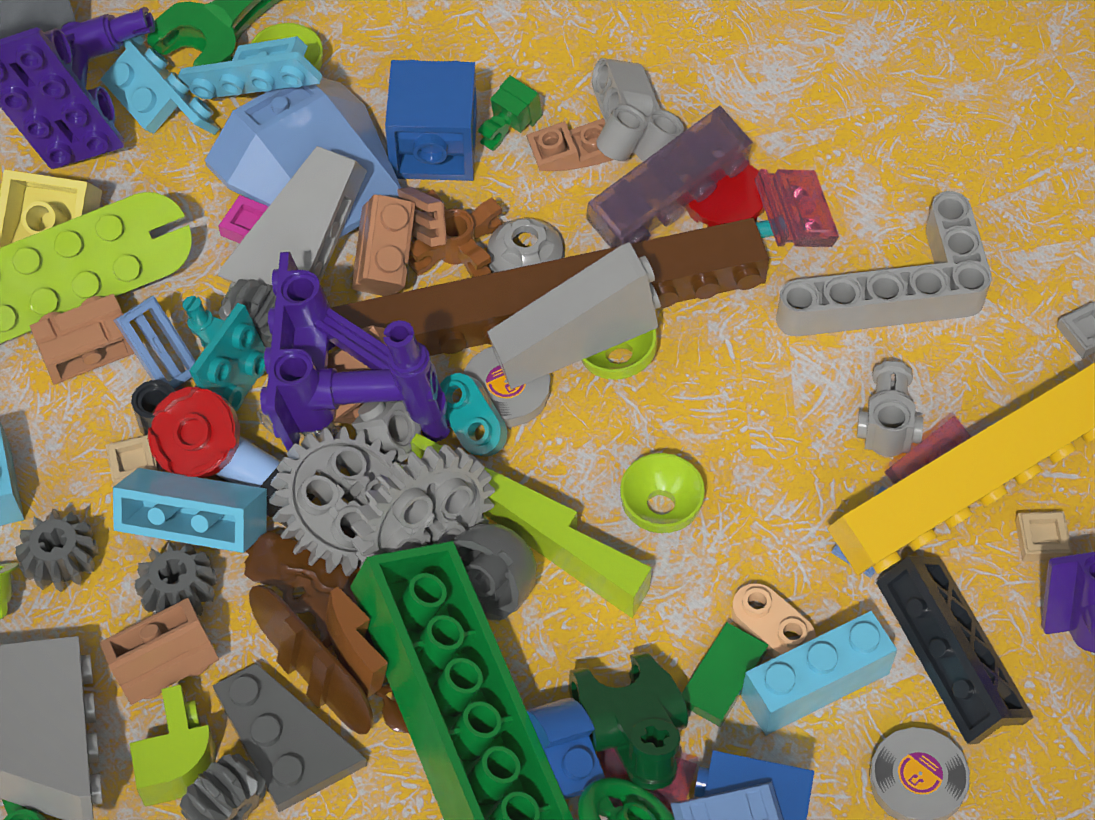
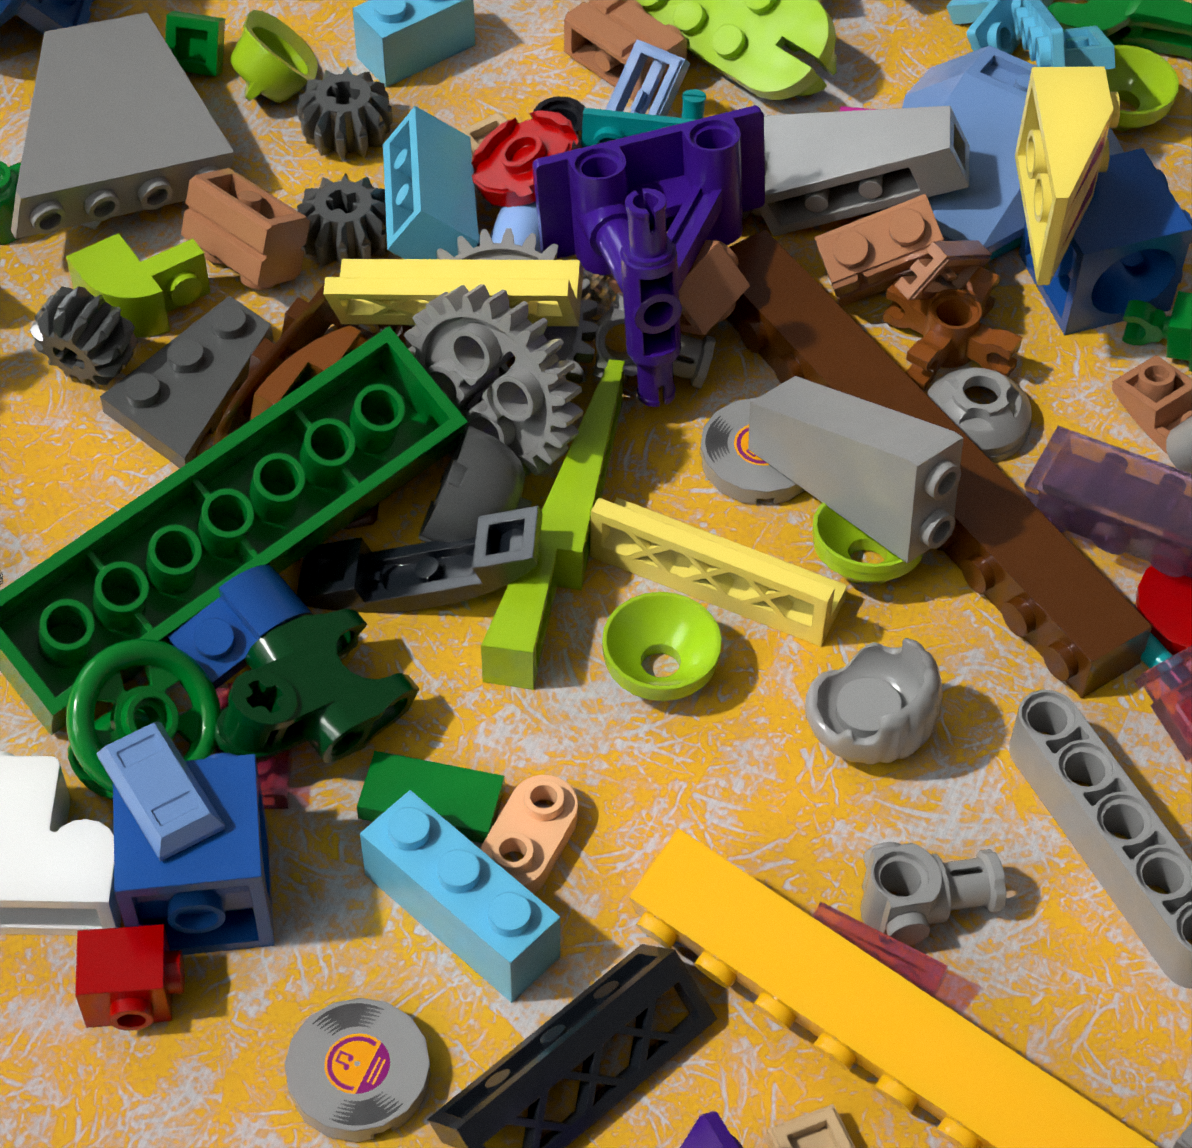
camera: 70 degrees right, 5 degrees down
(329, 510) = (400, 288): none -> light yellow fence
(421, 102) = (1060, 155): none -> light yellow slope
(471, 411) = (691, 420): teal plate -> none
(546, 611) = (425, 573): none -> black slope
(603, 439) = (715, 569): none -> light yellow fence
(755, 383) = (877, 703): none -> light grey piece

